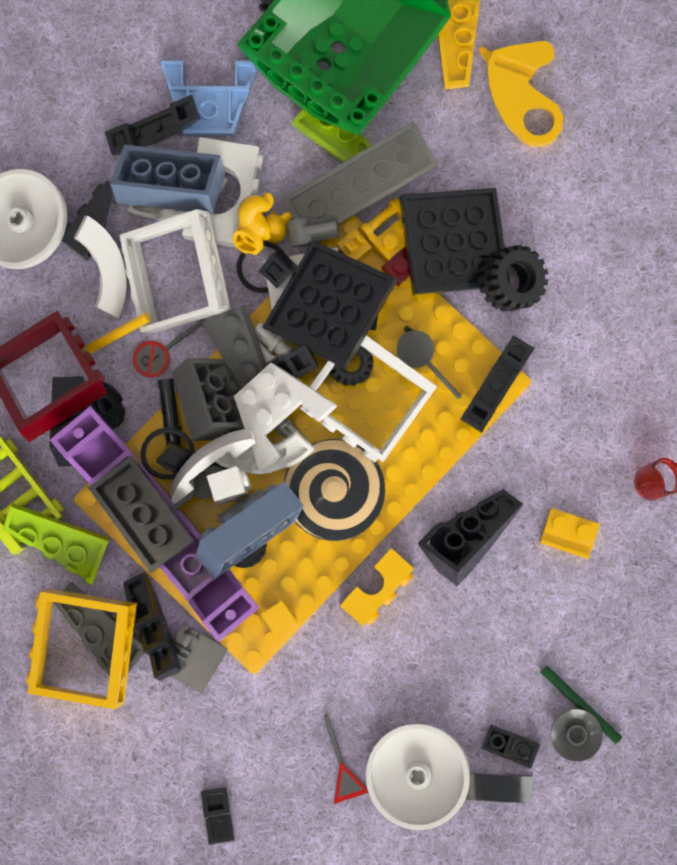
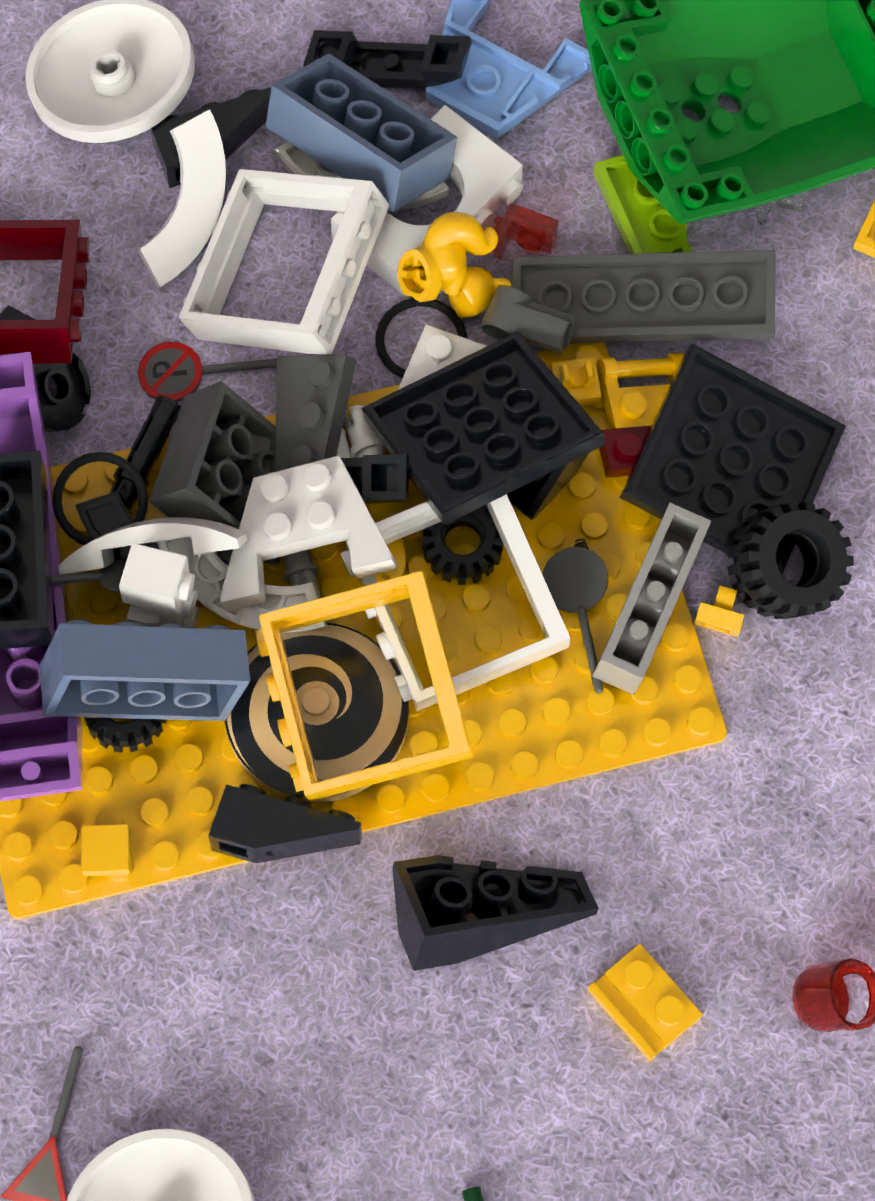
camera: 25 degrees right, 15 degrees down
(118, 333) = (144, 301): yellow bar -> none
(278, 268) = (439, 341): black slope -> none
(282, 177) = (527, 227): none -> clear red bracket
(333, 511) = (283, 689): none -> yellow window
(347, 563) = (270, 829): none -> black slope
(365, 606) = (252, 915): yellow arch -> none
(460, 338) = (652, 599): none -> light grey brick
(494, 324) = (720, 616): none -> yellow tile
(497, 384) = (669, 703): black slope -> none

